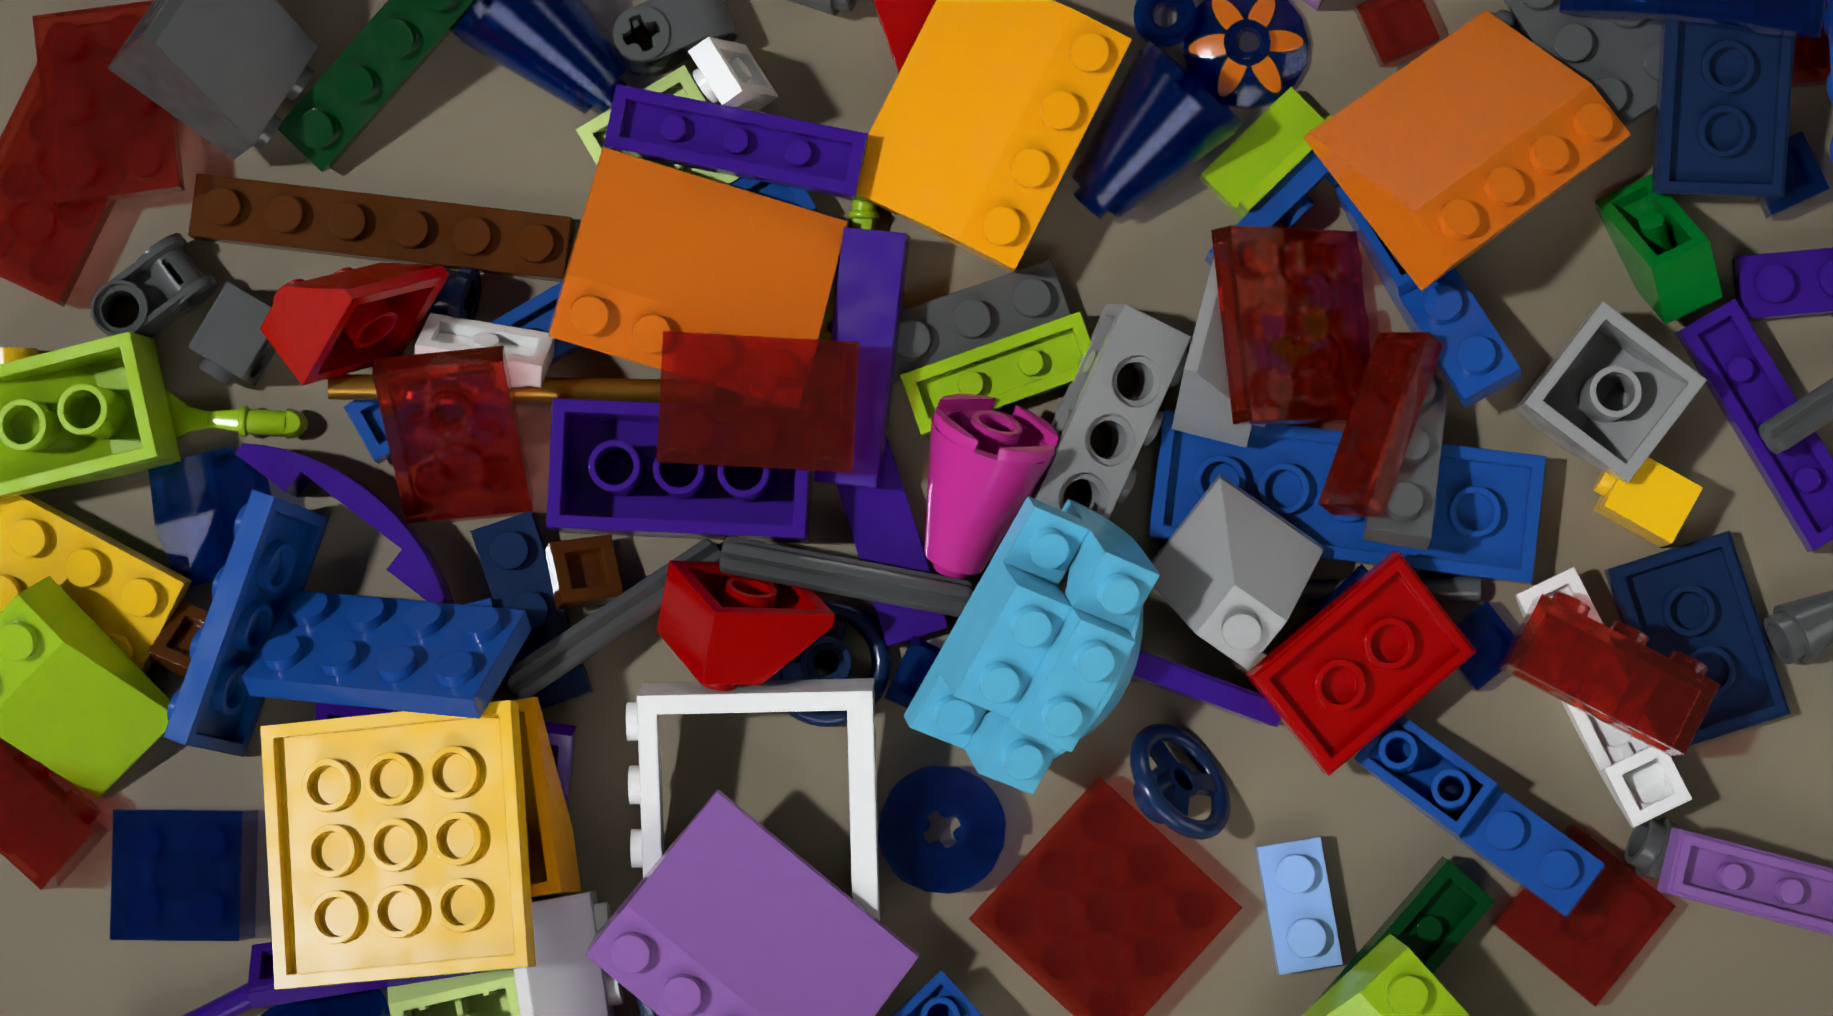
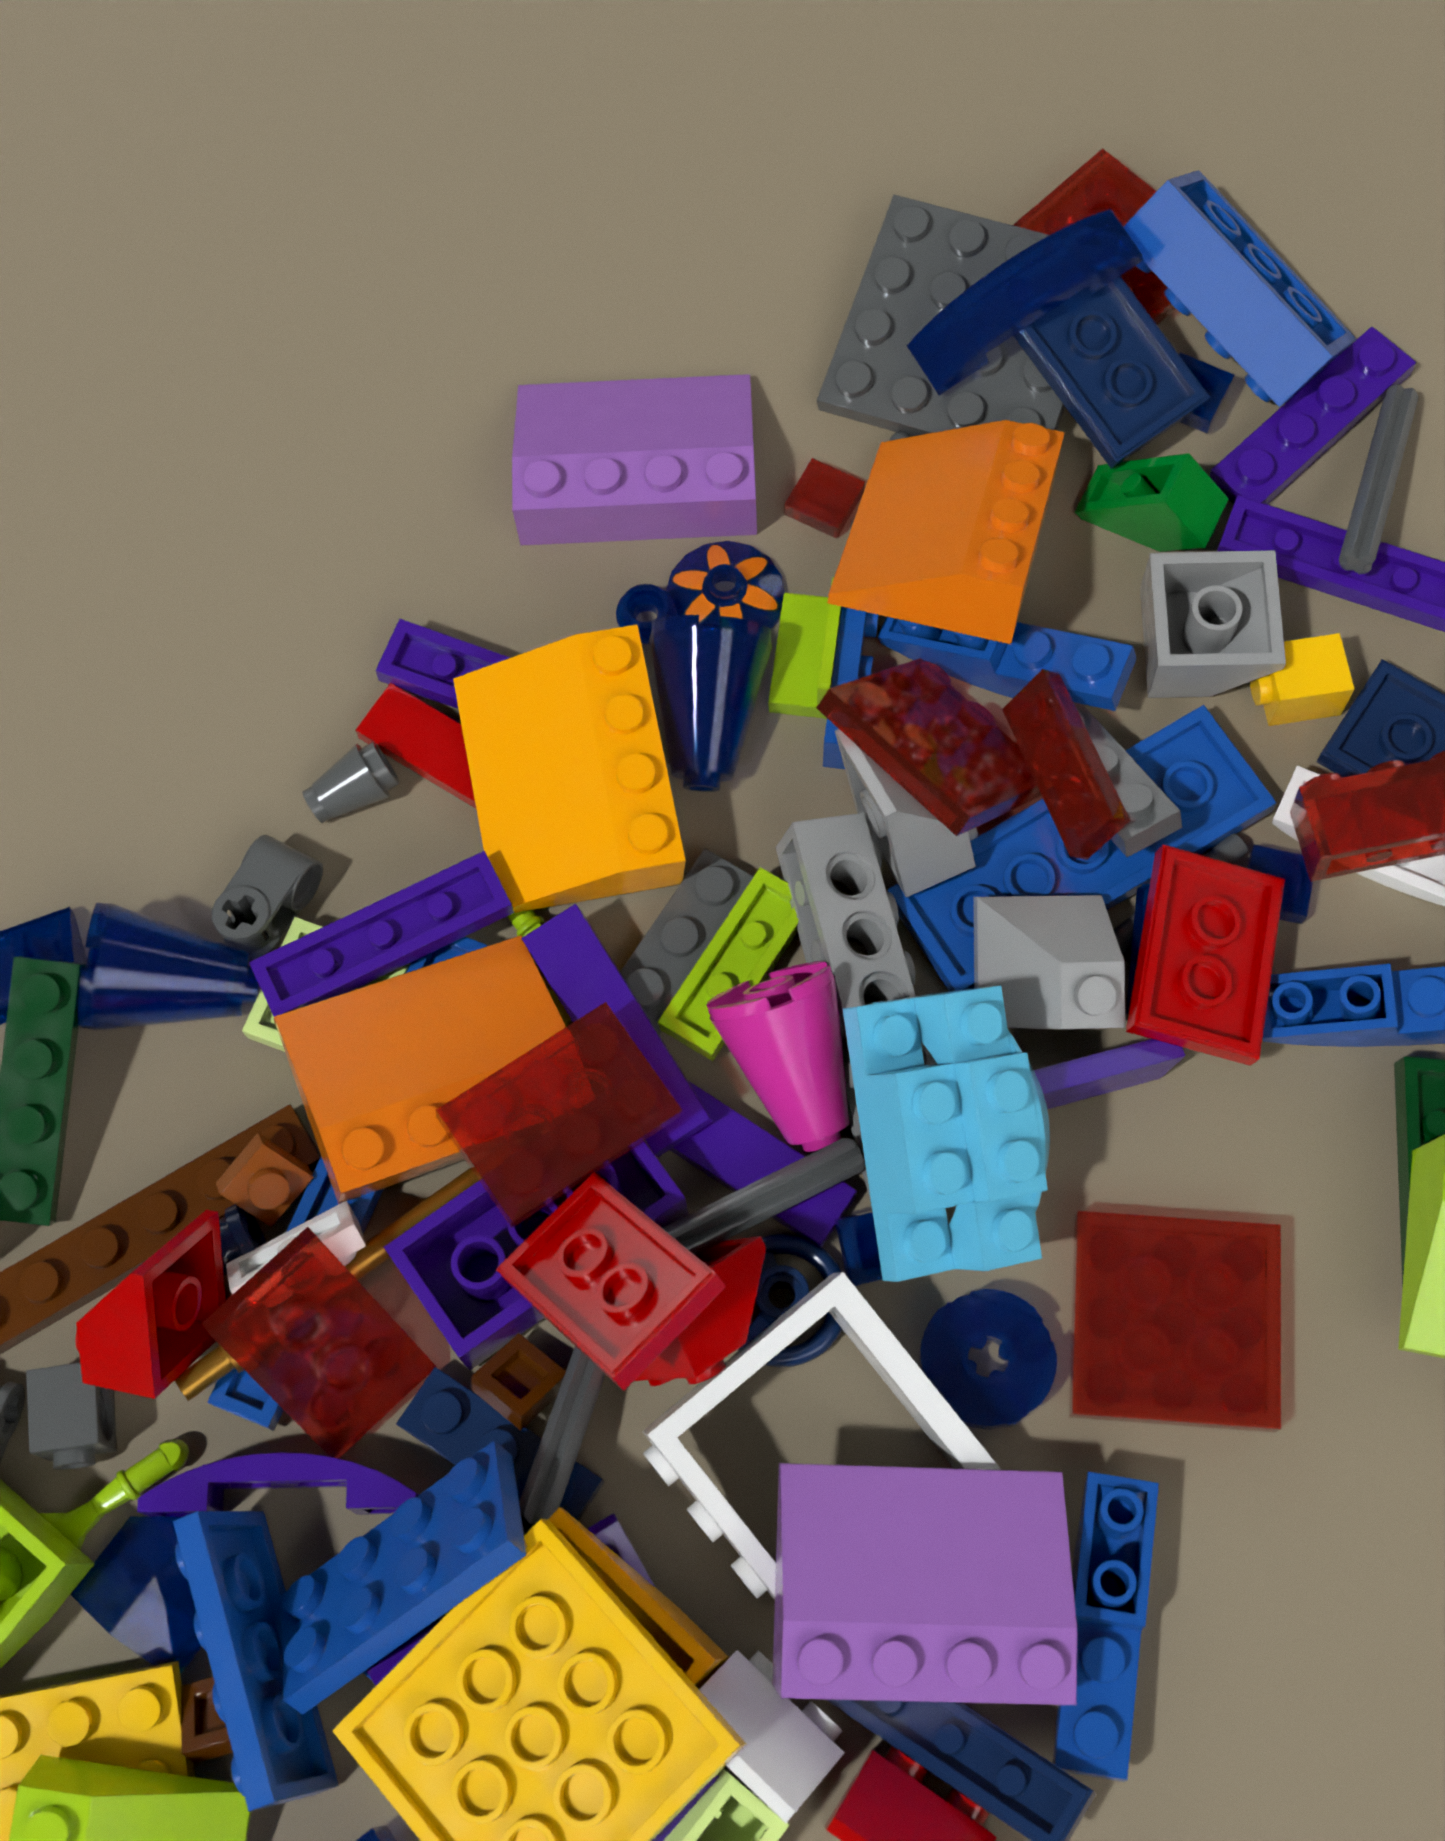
camera: 45 degrees left, 15 degrees down
(506, 267) = (264, 1180): none -> dark orange plate
(692, 563) = (610, 1280): none -> red tile
(730, 75) = (334, 890): white plate -> none
(1166, 789) = (1140, 1173): dark blue piece -> none
(1299, 905) = (1320, 1192): light blue plate -> none

